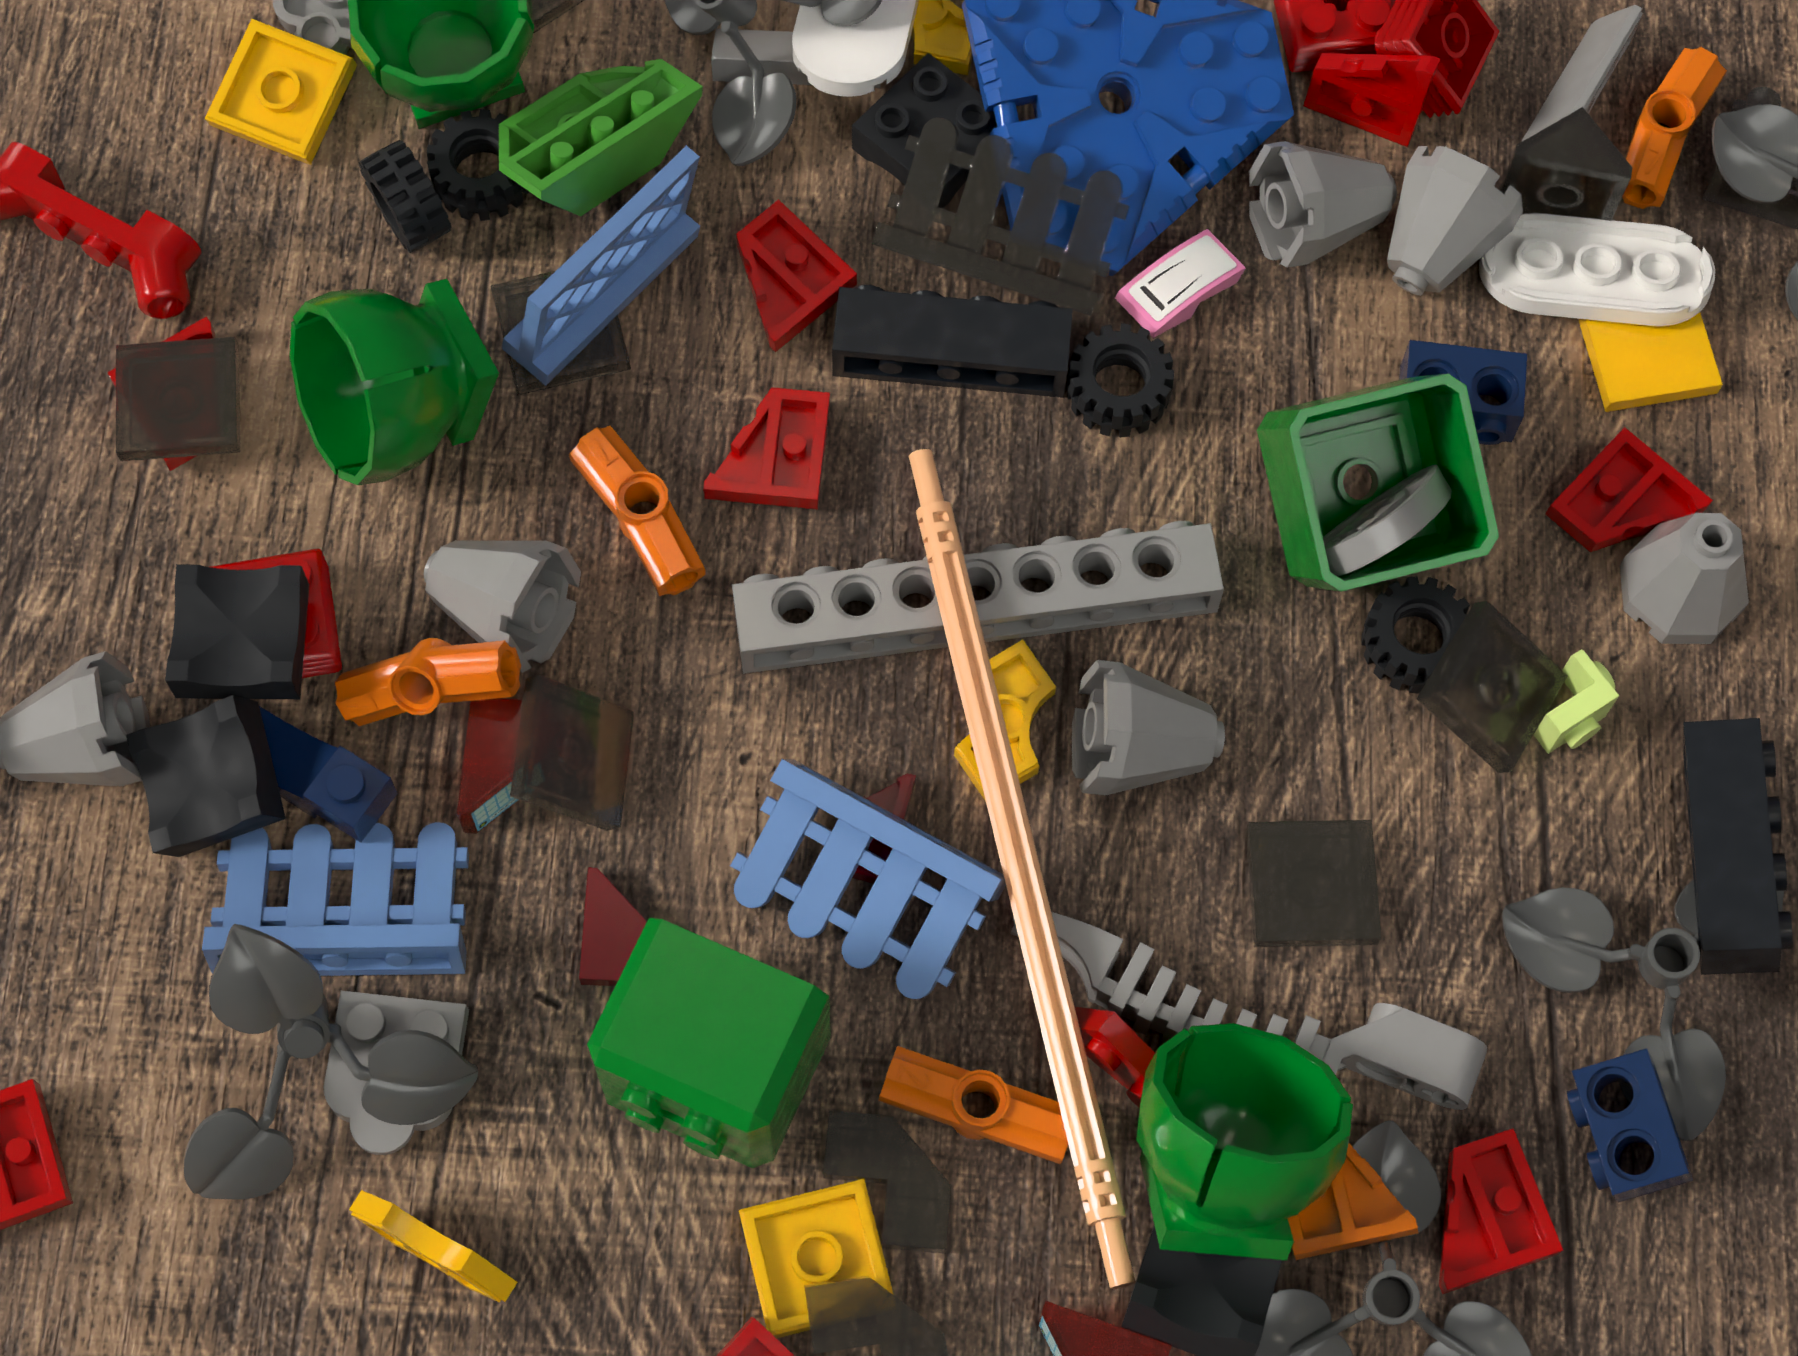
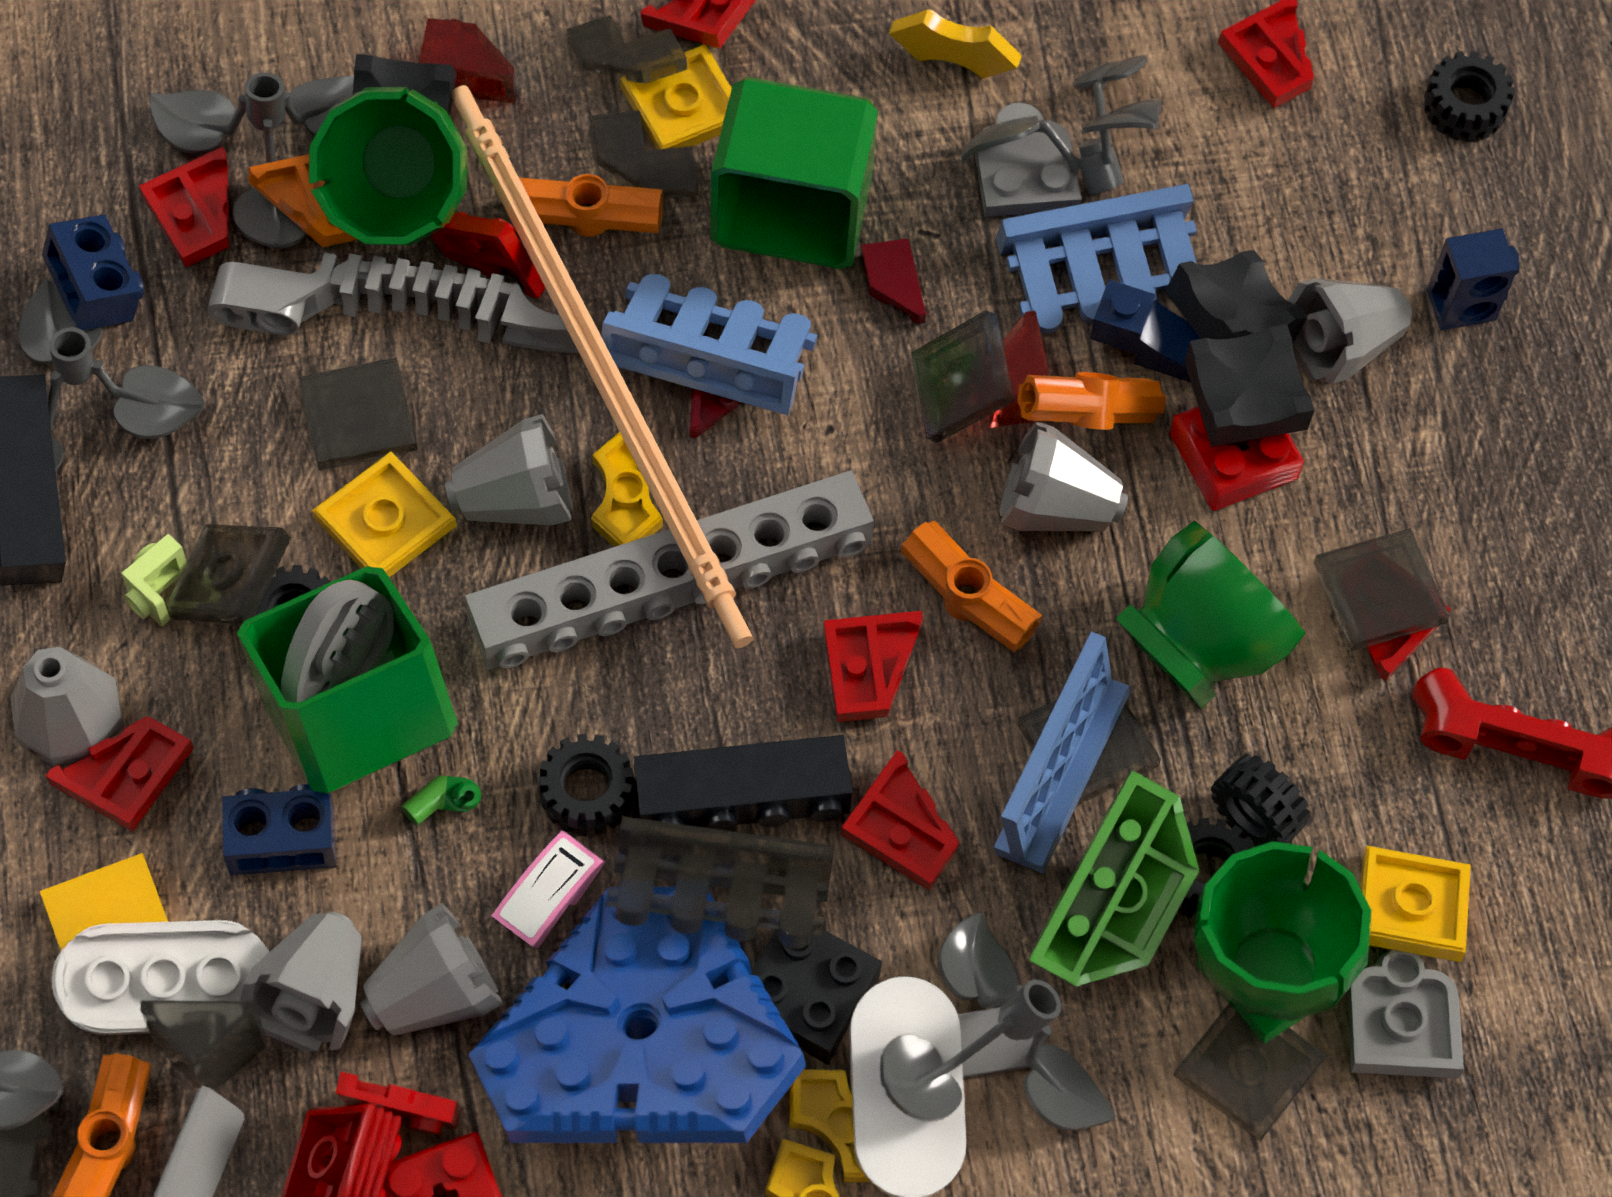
camera: 165 degrees right, 5 degrees down
(1257, 400) = (442, 794): none -> arm
(1299, 744) = (384, 516): none -> yellow tile

